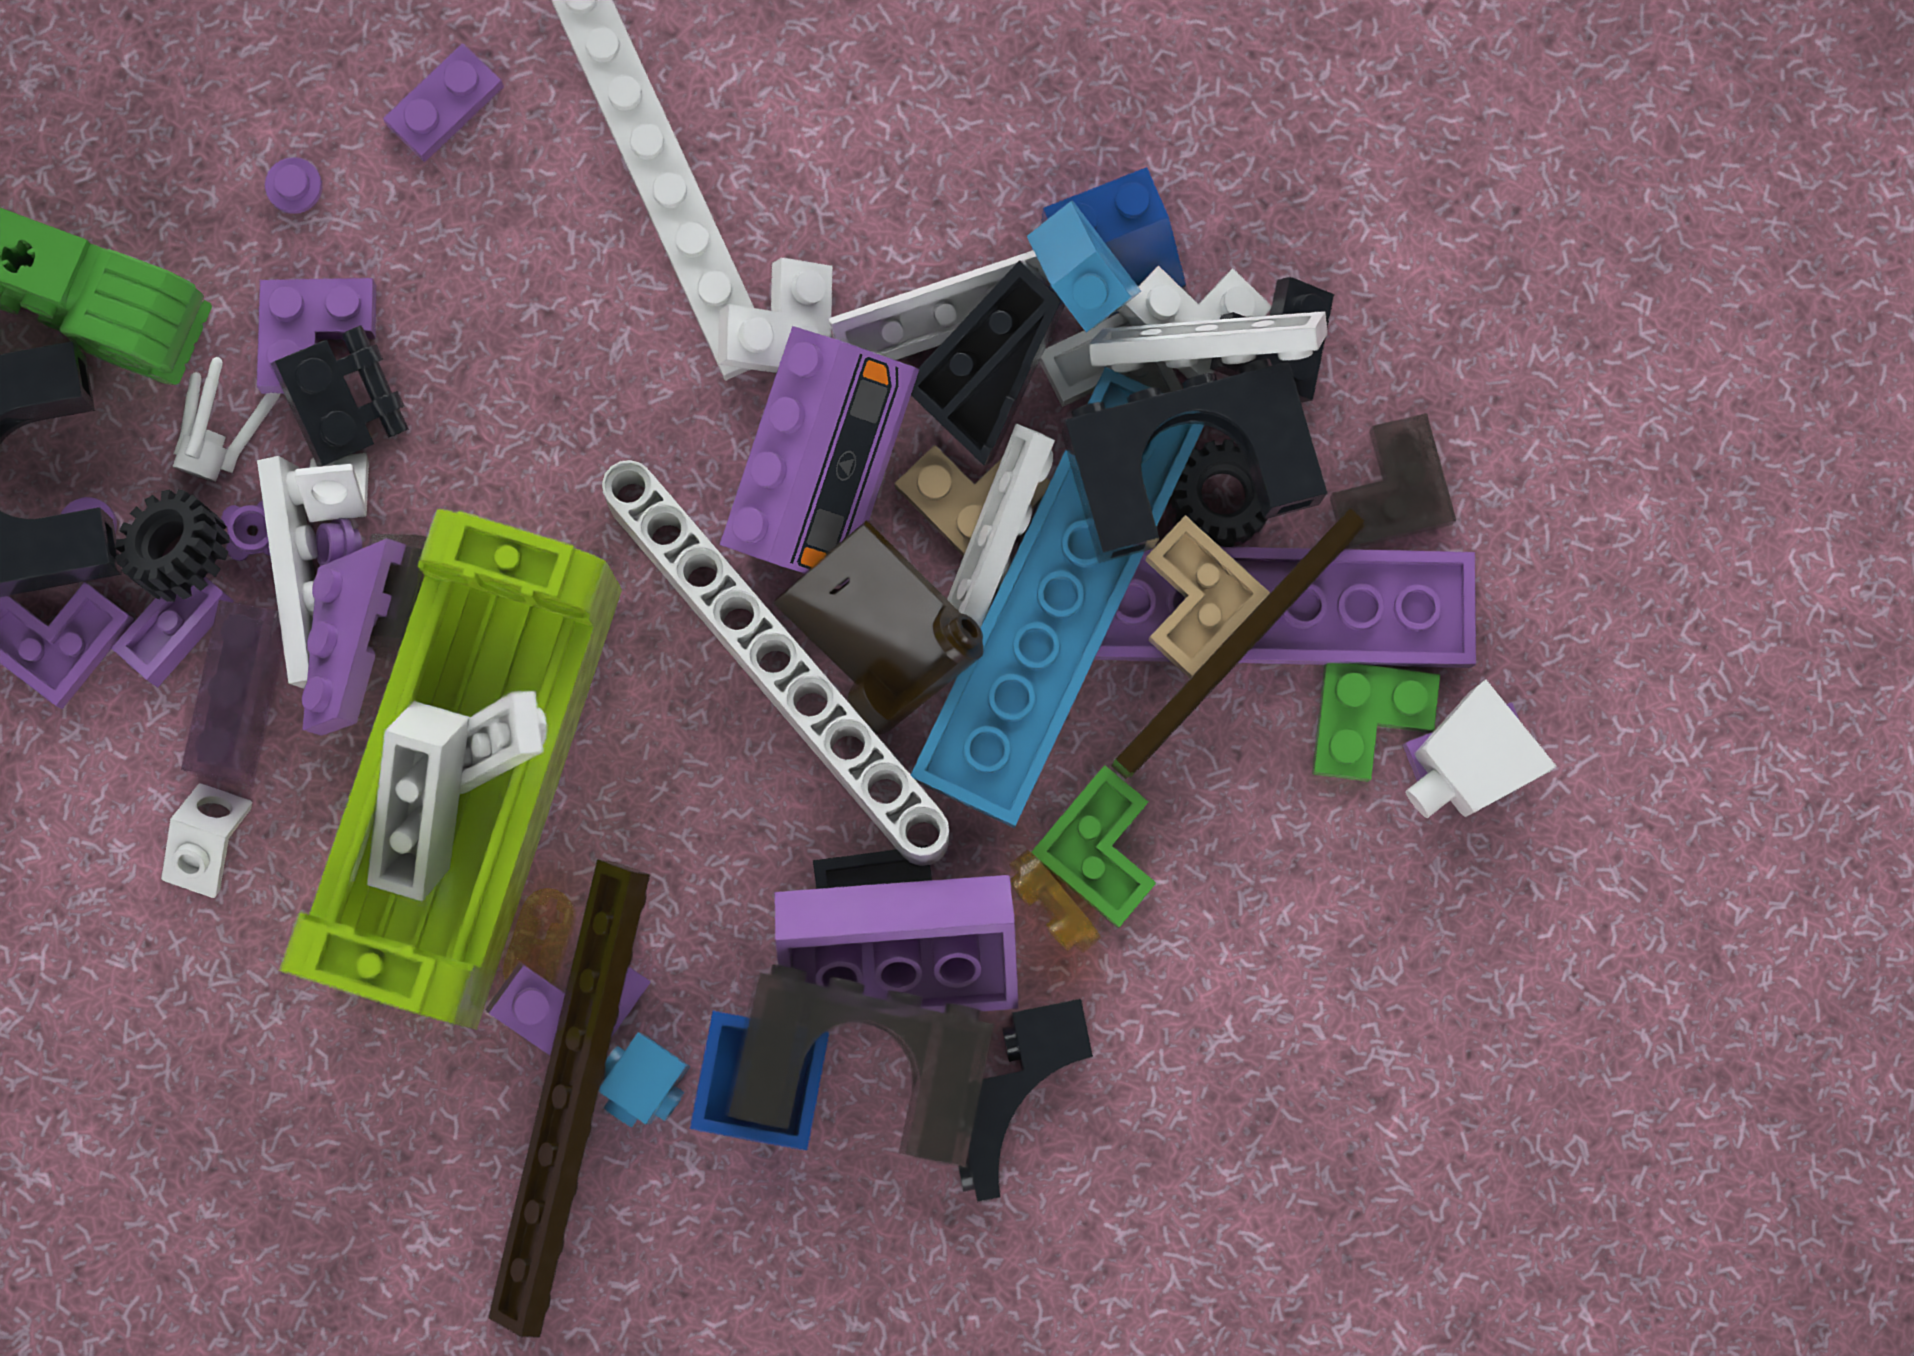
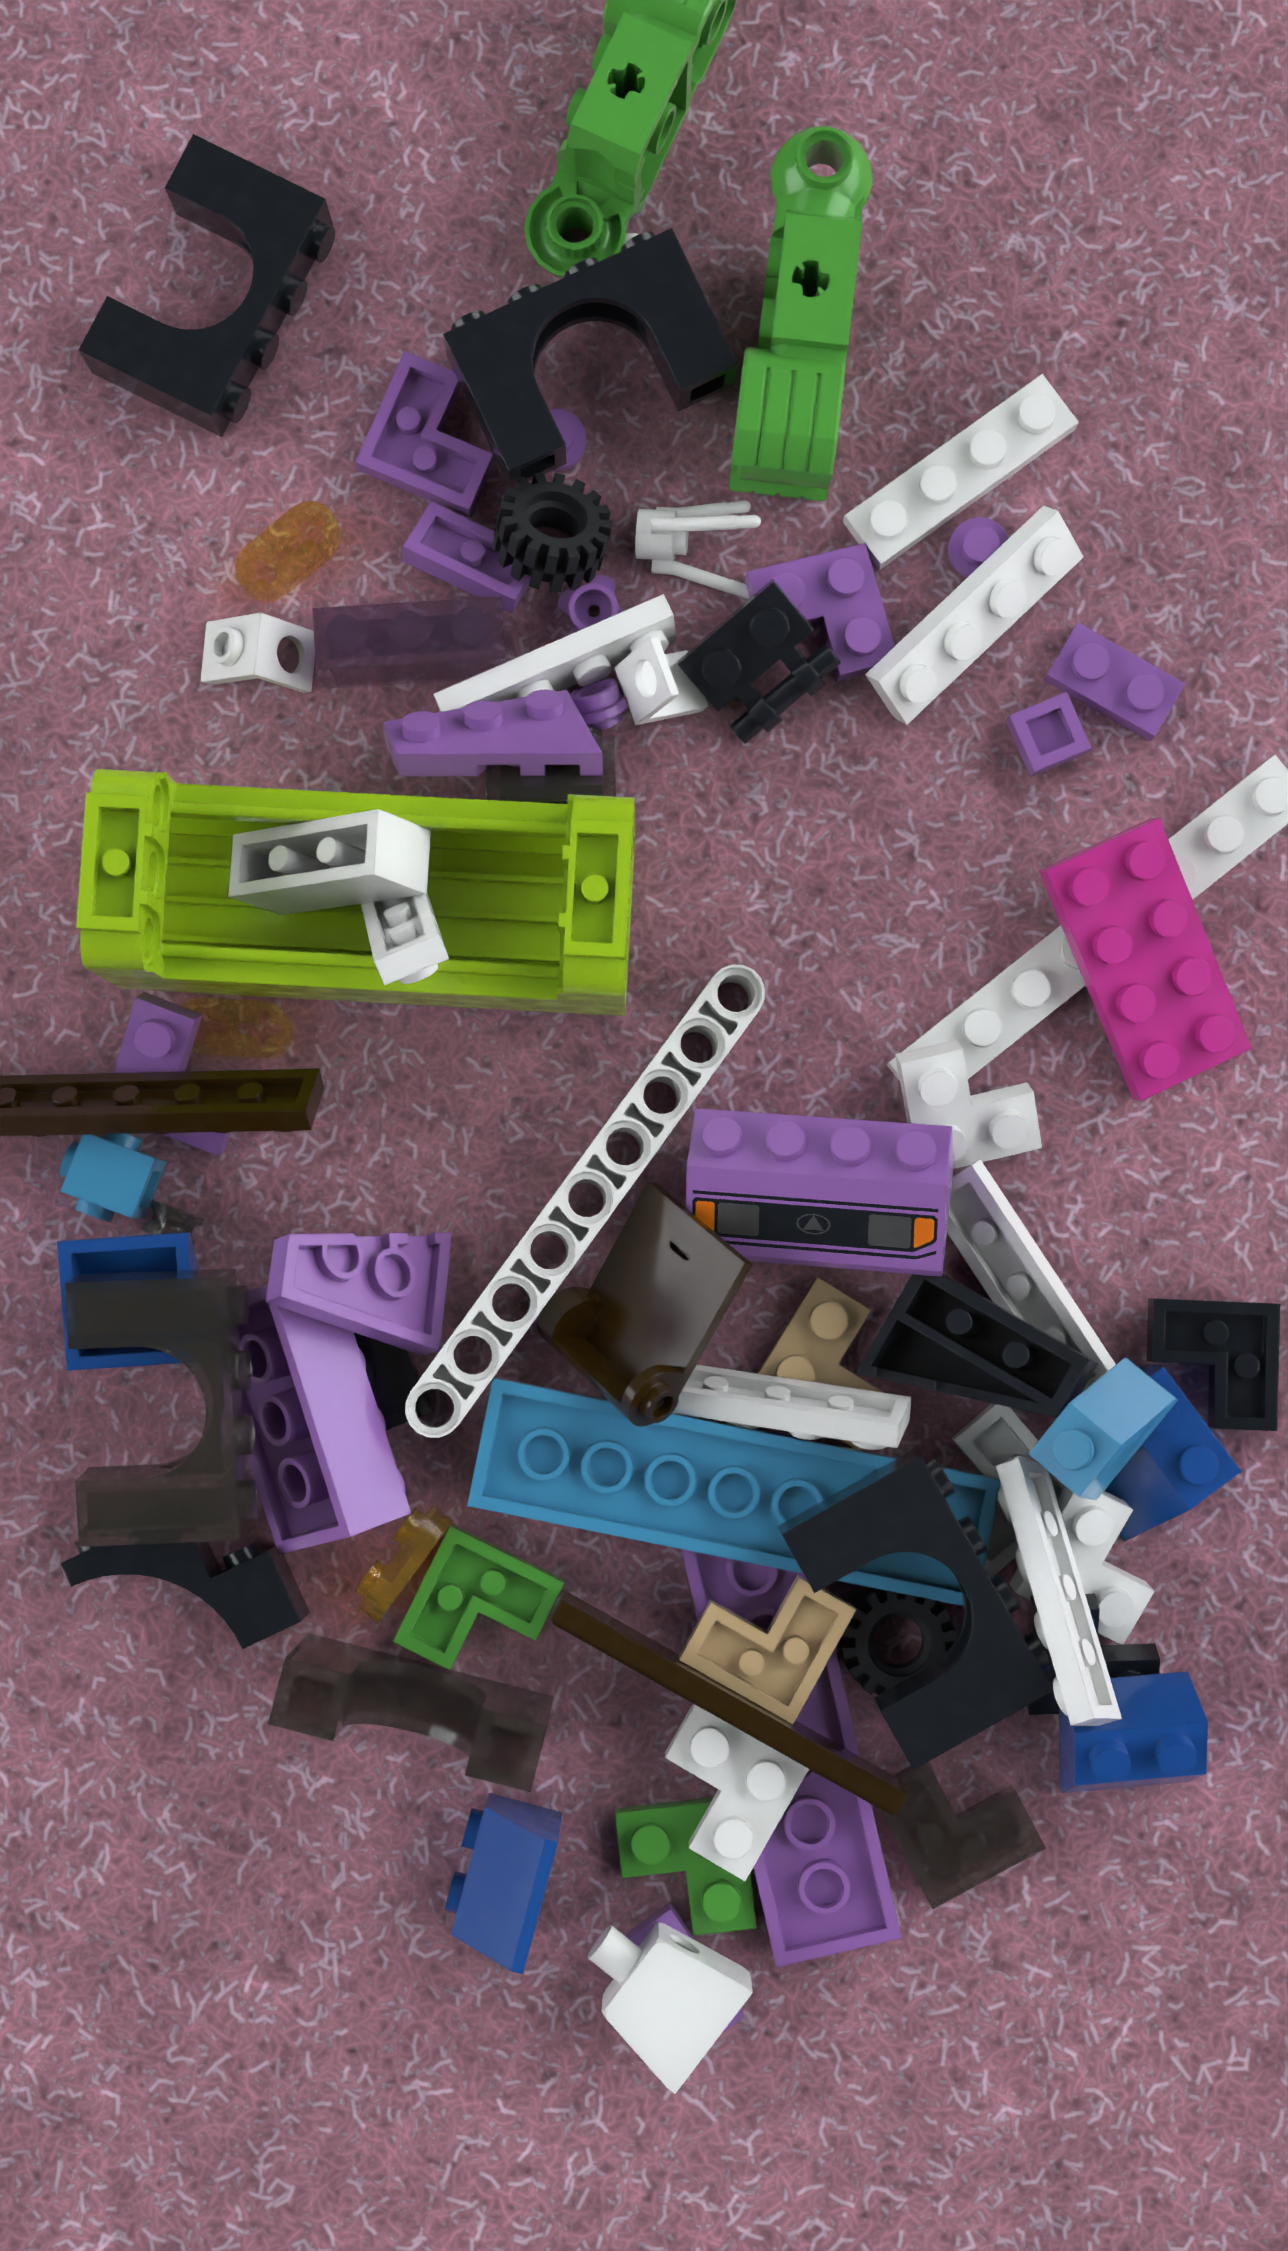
camera: 80 degrees right, 5 degrees up
(131, 782) = (279, 540): none -> clear yellow beam
(220, 184) = (960, 471): none -> white plate
(351, 203) = (975, 615): none -> white plate
(474, 168) = (1048, 734): none -> medium lavender plate
(692, 136) = (1145, 959): none -> dark pink plate
(695, 1037) = (171, 1220): none -> clear smoke bush
(799, 864) = (366, 1284): none -> medium lavender wing
(1042, 147) = (1239, 1346): none -> black plate
(1188, 891) = (346, 1684): none -> clear smoke arch
(1313, 642) = (751, 1784): none -> white plate
(1346, 875) = (505, 1878): none -> blue slope
(1361, 308) = (1153, 1744): none -> blue slope

